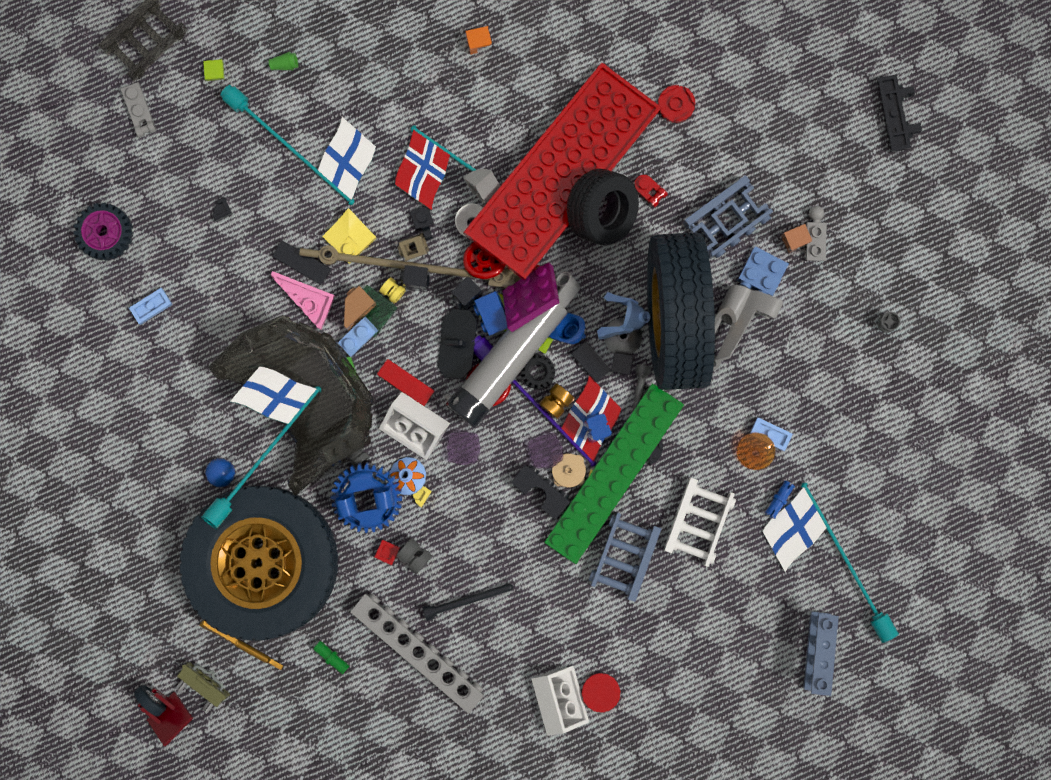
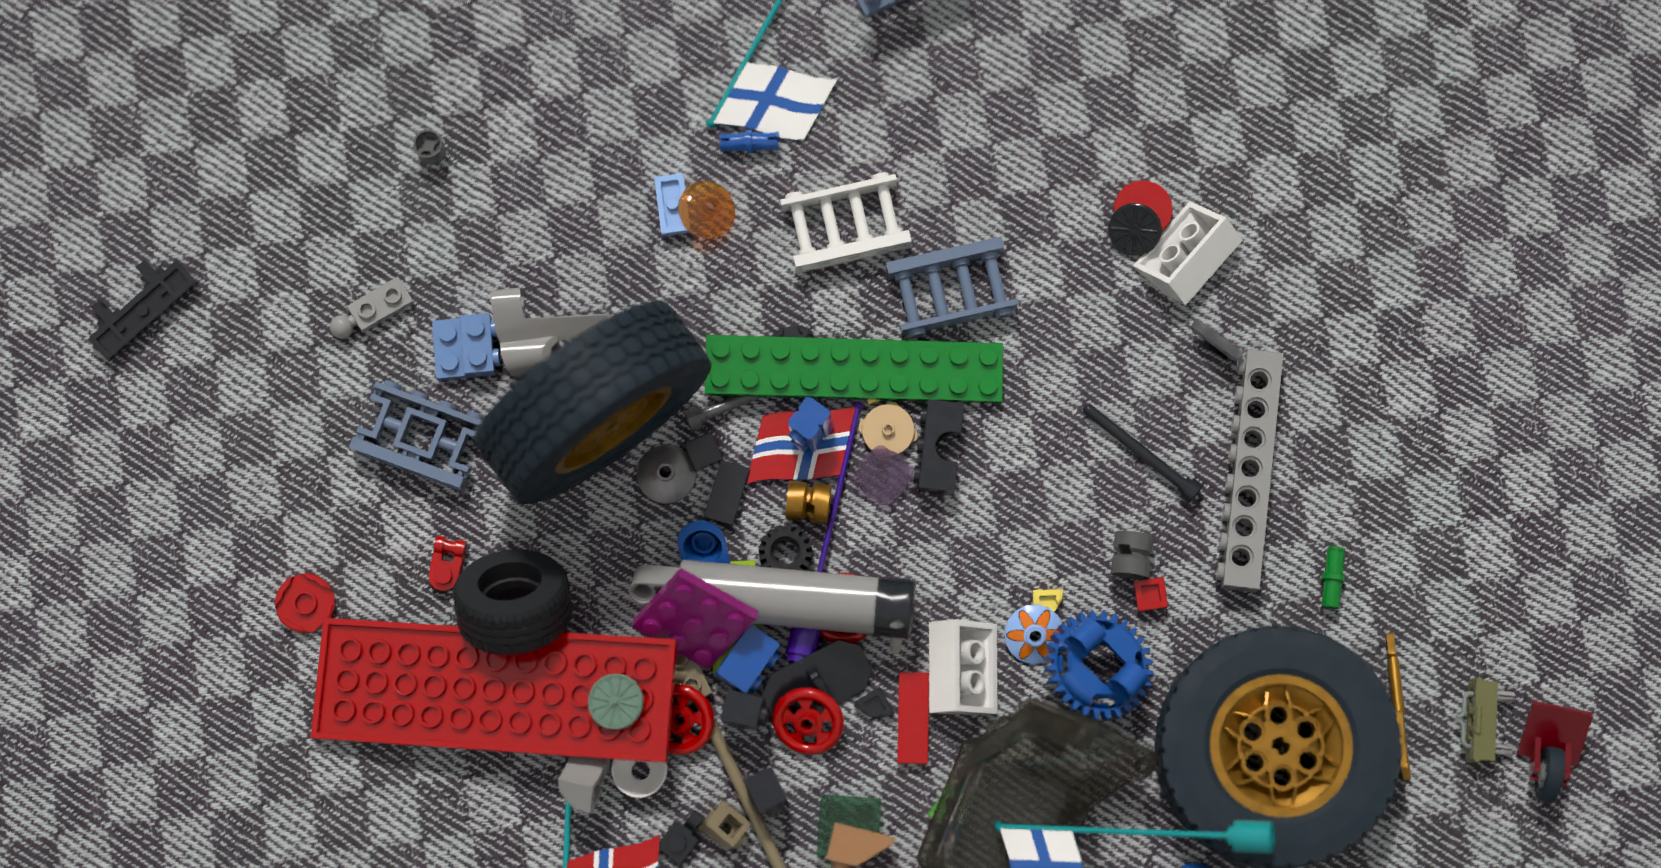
camera: 120 degrees left, 5 degrees down
(358, 336) = (894, 820): light blue plate -> none
(392, 290) = (803, 809): light yellow wheel -> none
(426, 367) = (875, 704): none -> black tile
(452, 330) = (805, 697): none -> red plate
(463, 448) = (949, 584): clear purple piece -> none
(499, 681) = (1216, 342): none -> black tile
(512, 226) = (615, 701): none -> sand green wheel
(592, 679) = (1135, 229): none -> black wheel
(634, 319) = (634, 466): light blue piece -> none
(796, 238) = (392, 330): nougat panel -> none

